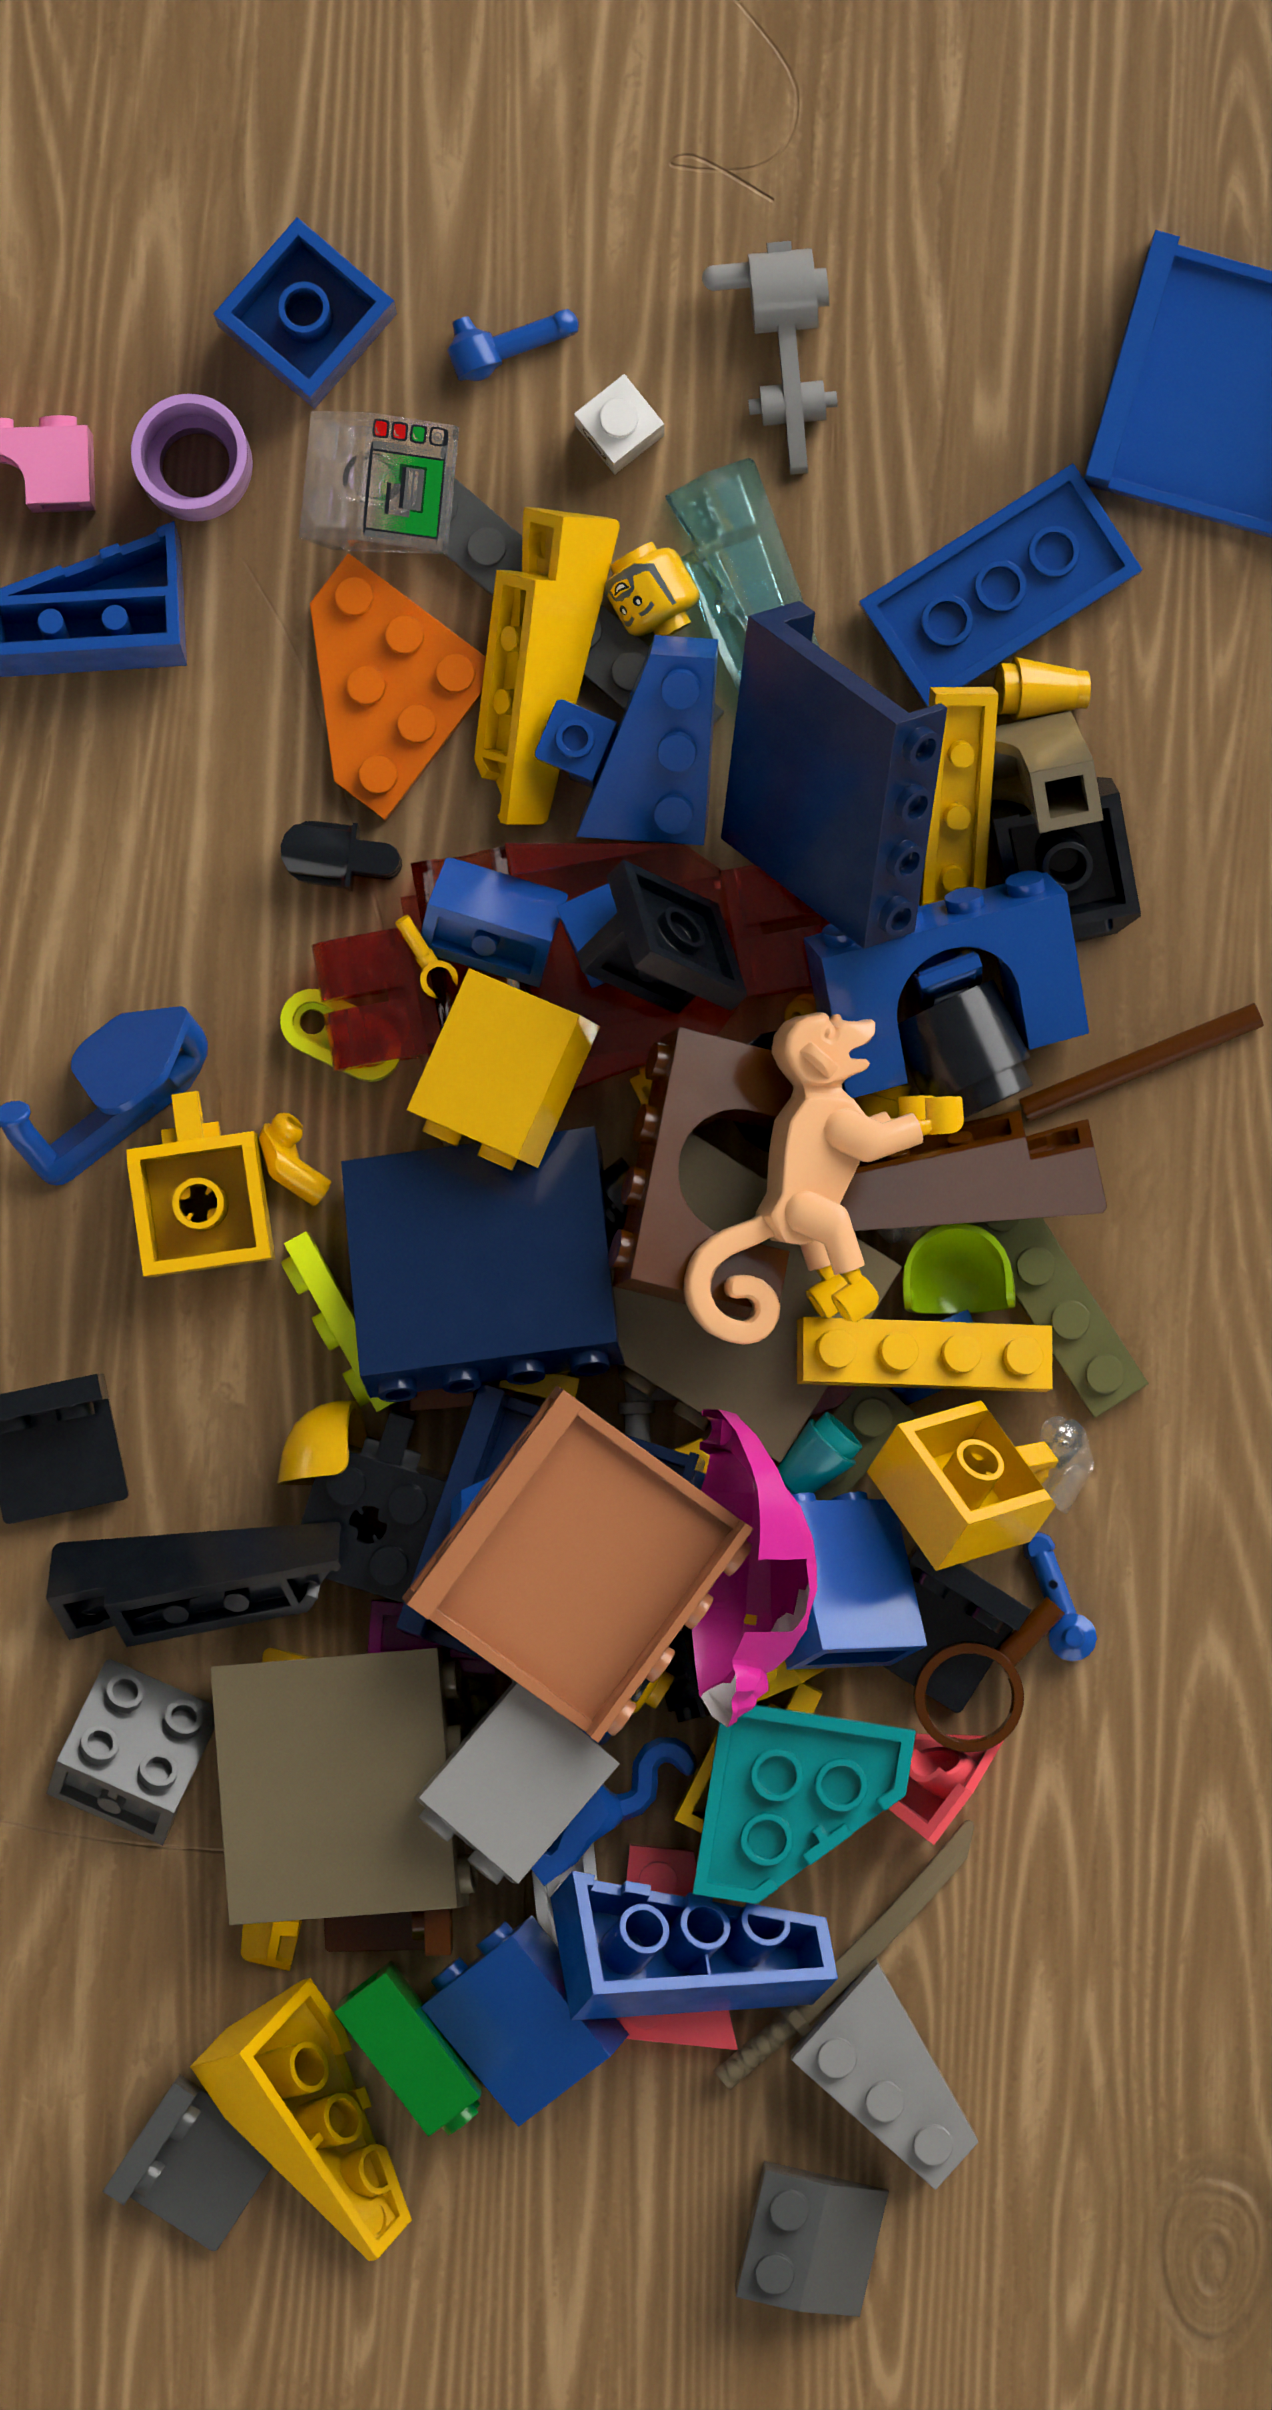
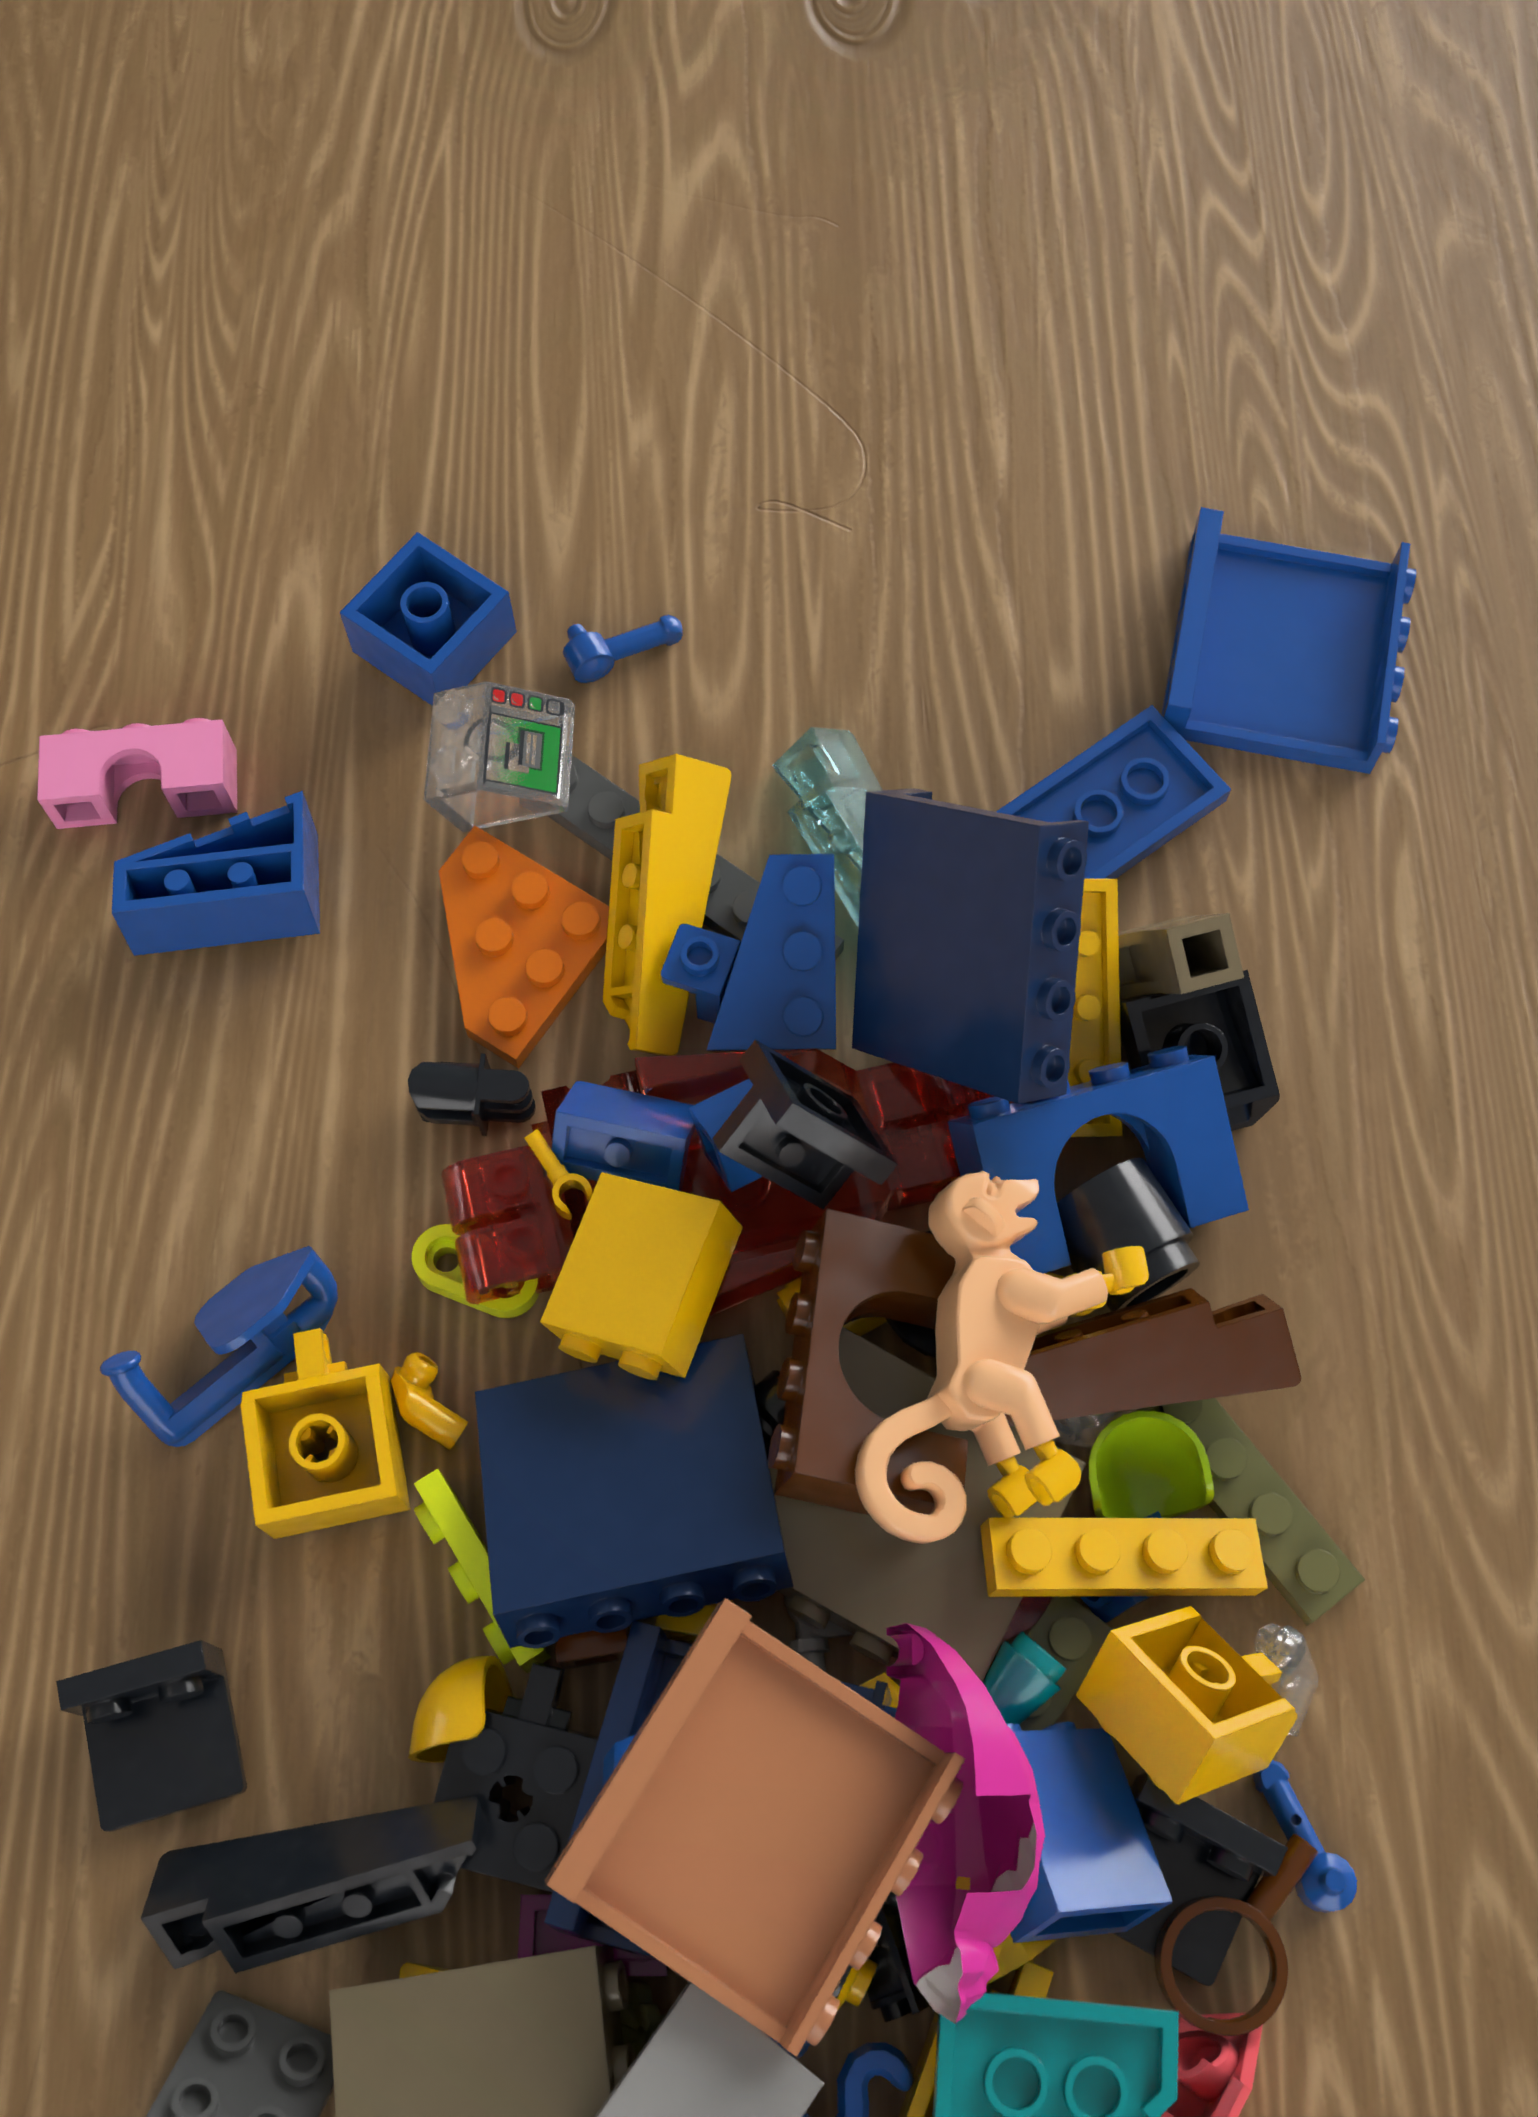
camera: 10 degrees left, 20 degrees down
(169, 422) = (316, 711): lavender piece -> none
(619, 424) = (725, 698): white brick -> none
(652, 591) = (763, 826): yellow head -> none
(783, 300) = (869, 589): light grey piece -> none
(946, 976) = (1095, 1154): blue slope -> none
(1039, 688) = (1152, 900): yellow cone -> none
(1141, 1062) = (1306, 1242): reddish brown bar -> none

